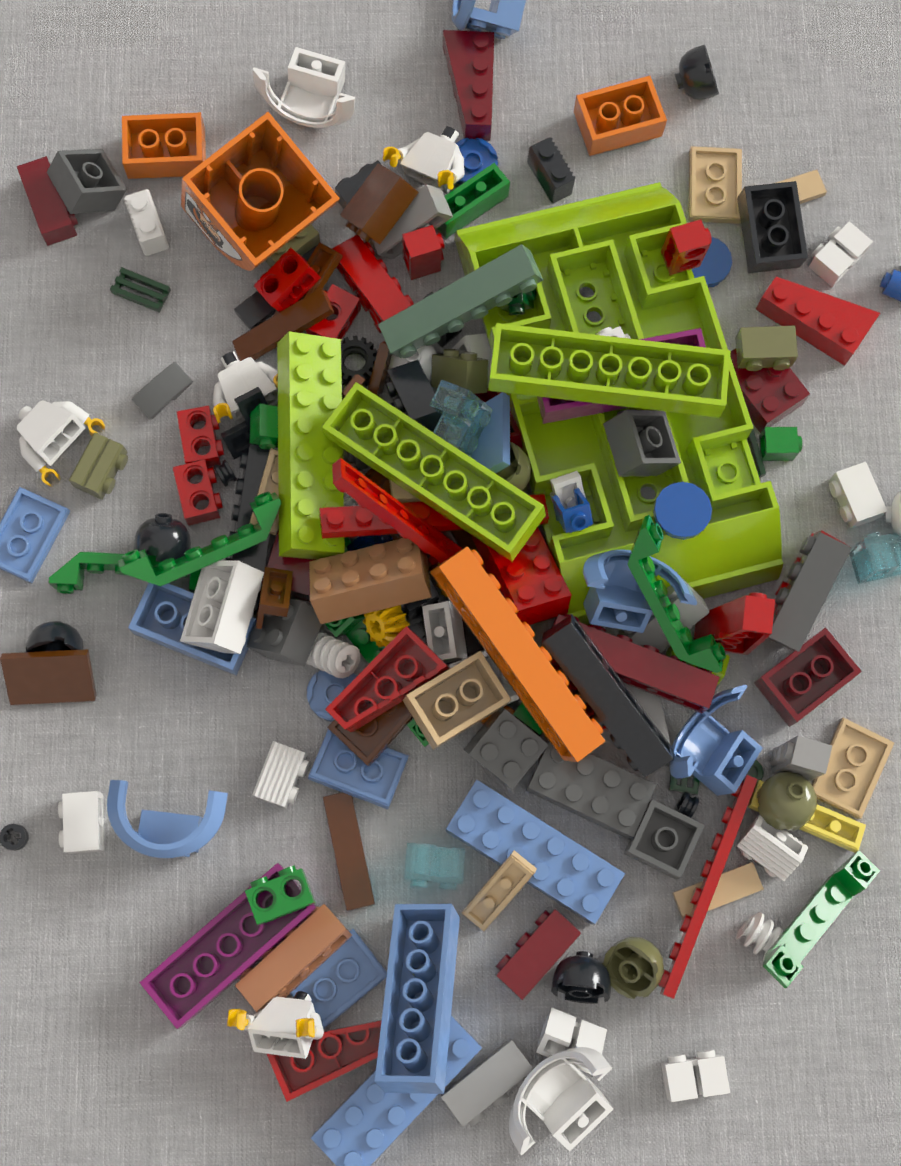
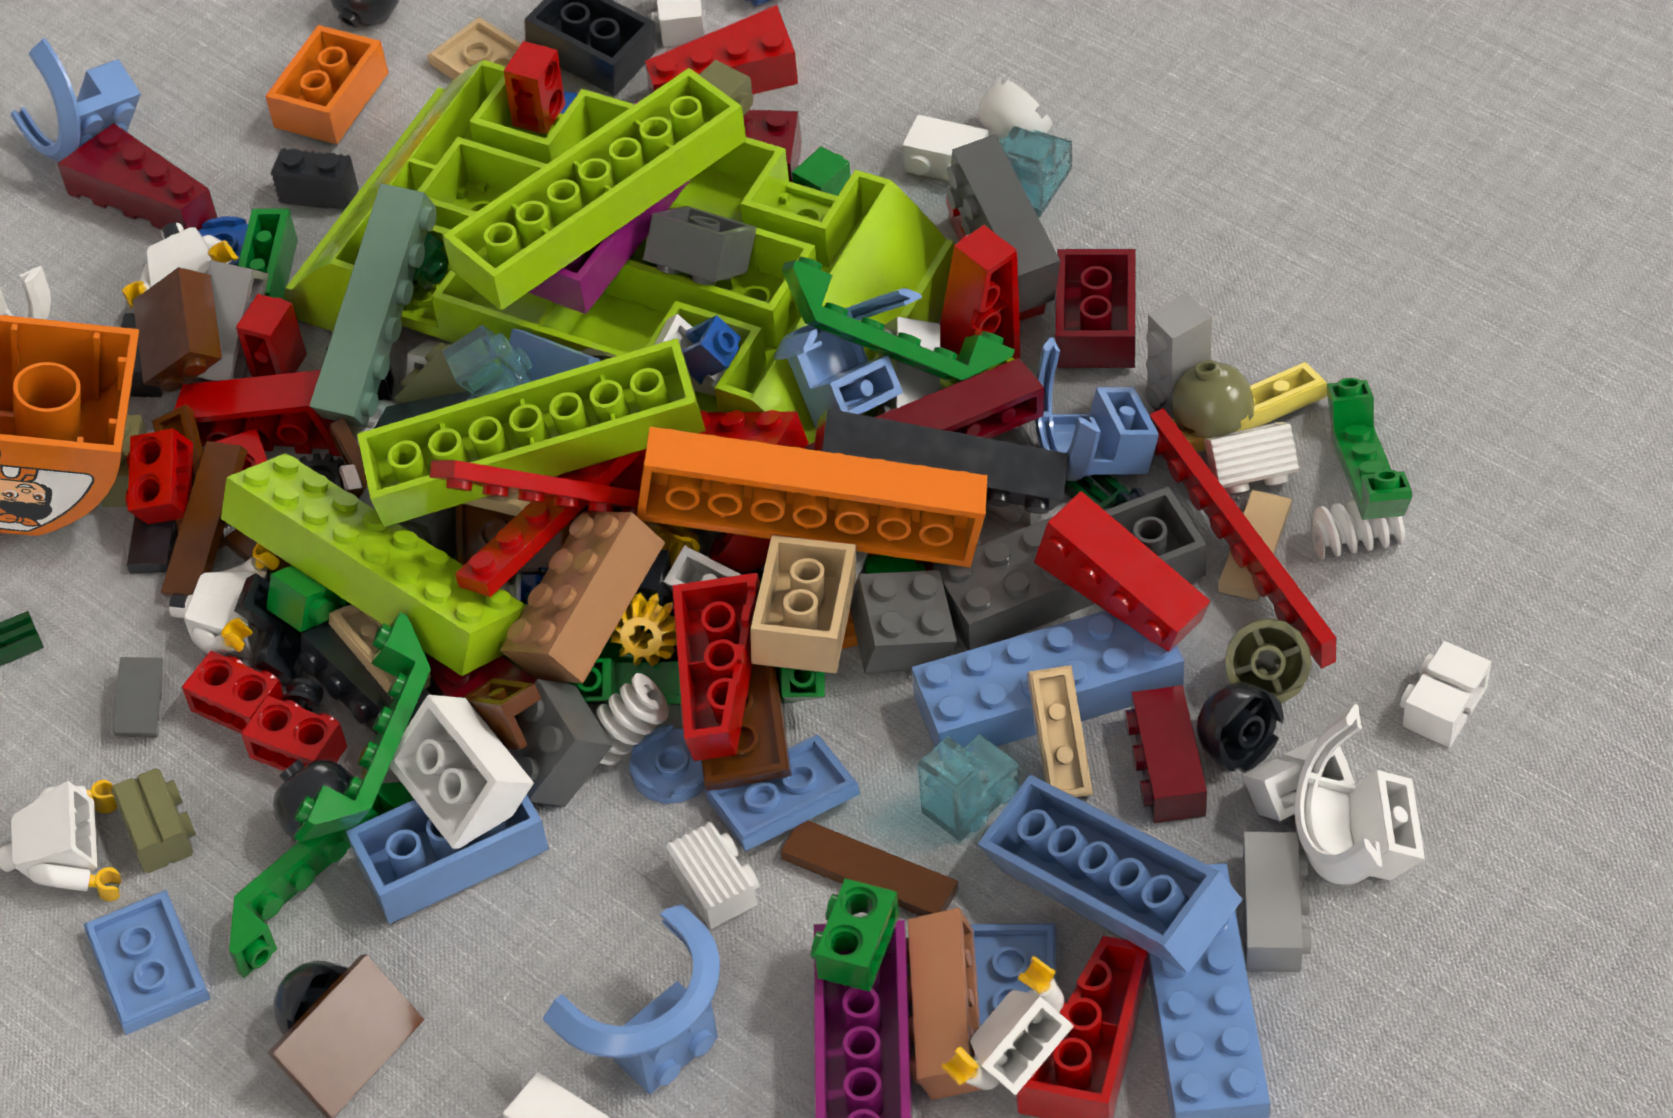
camera: 40 degrees left, 25 degrees down
(611, 857) = (1119, 573): none -> red wedge
(682, 510) = (809, 241): blue tile -> none
(852, 768) = (1244, 338): tan tile -> none

